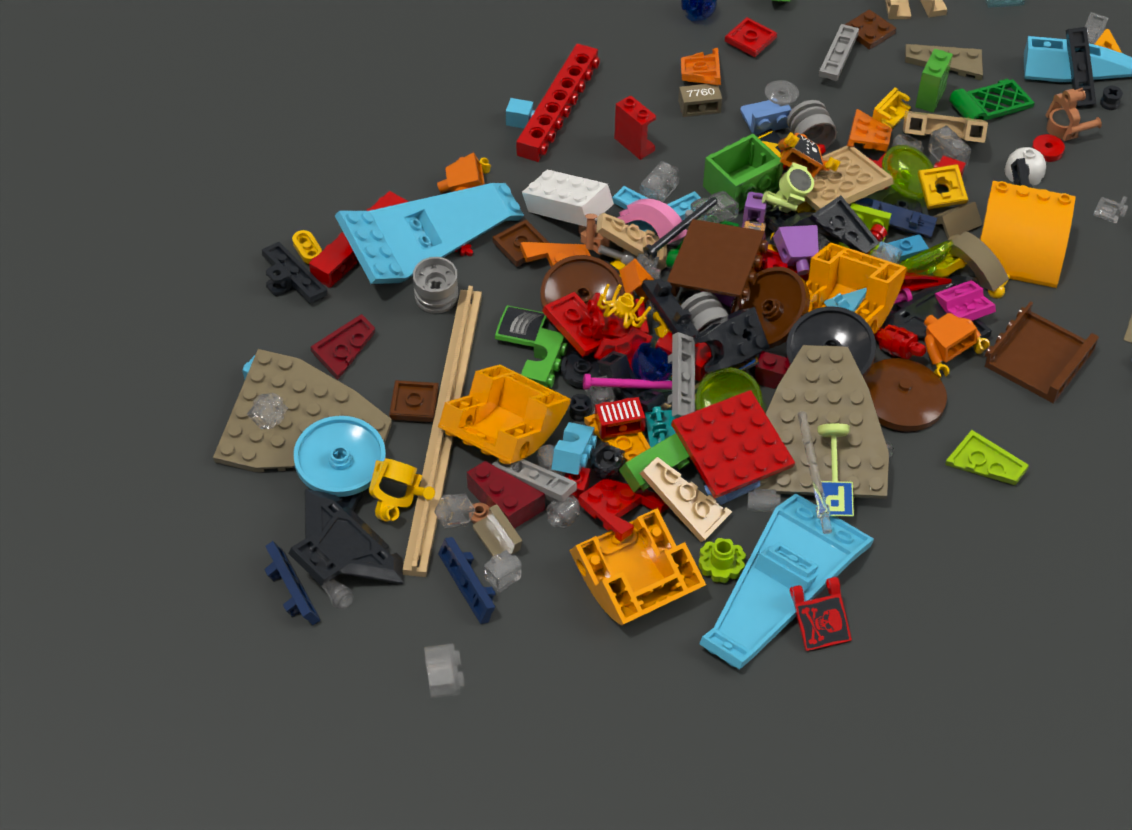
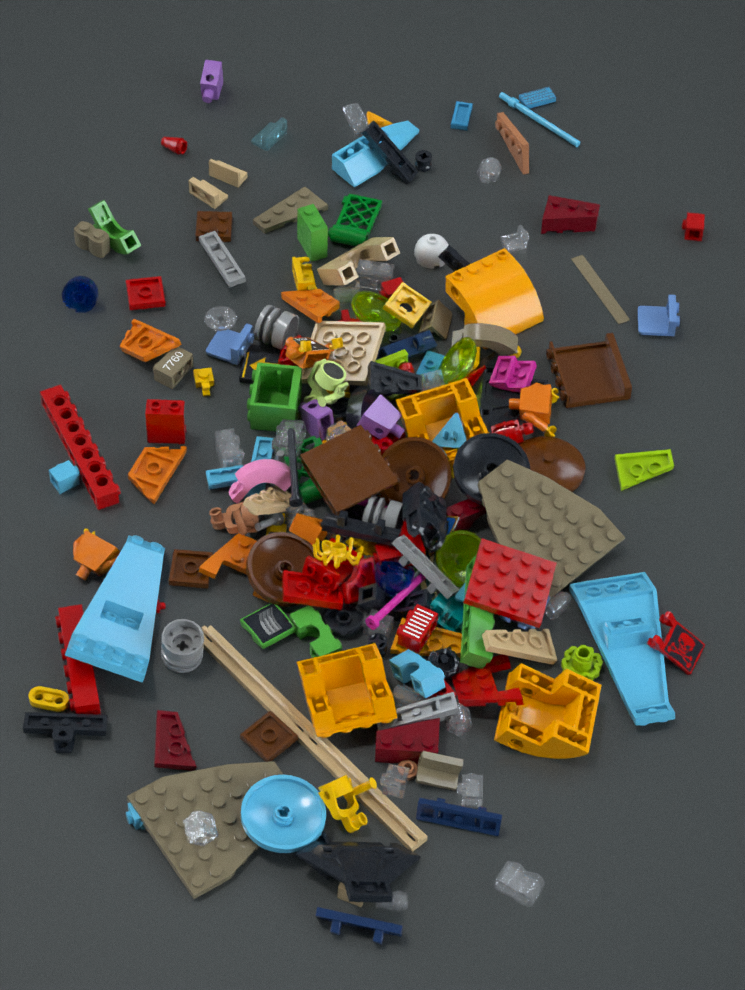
camera: 50 degrees left, 0 degrees up
(567, 197) = (189, 509): white brick -> none
(592, 157) = (155, 469): none -> orange wing
(712, 125) = (204, 379): none -> yellow plate
(822, 509) = (608, 578): clear bar -> none
(837, 494) = (599, 561): yellowish green piece -> none
(1049, 146) = (426, 225): red piece -> none
(1065, 121) = (420, 197): nougat piece -> none

